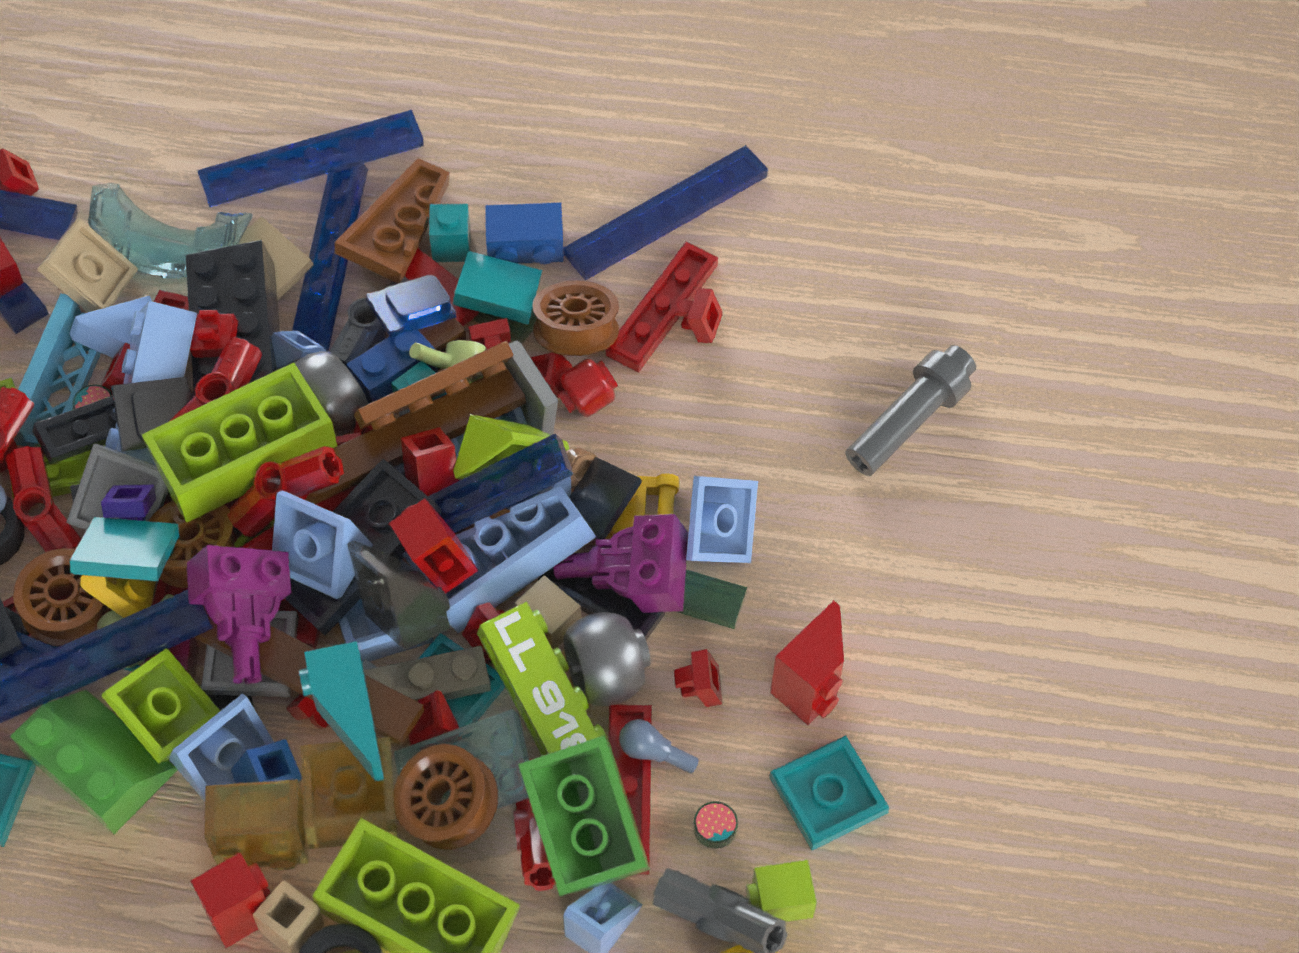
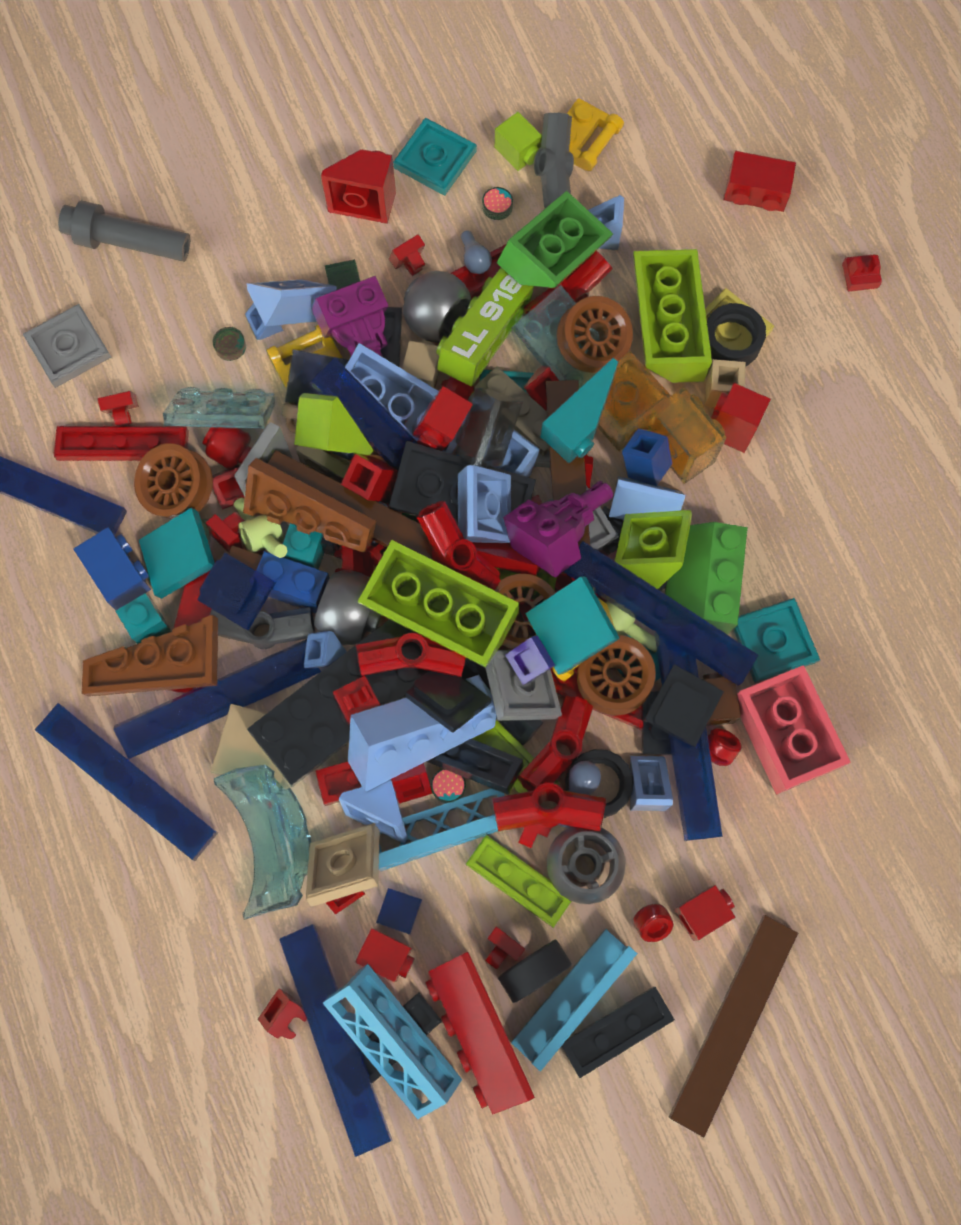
camera: 120 degrees left, 15 degrees up
(626, 393) = (219, 408): none -> clear light blue plate
(714, 453) = (229, 343): none -> tile
(811, 308) = (67, 345): none -> light grey tile

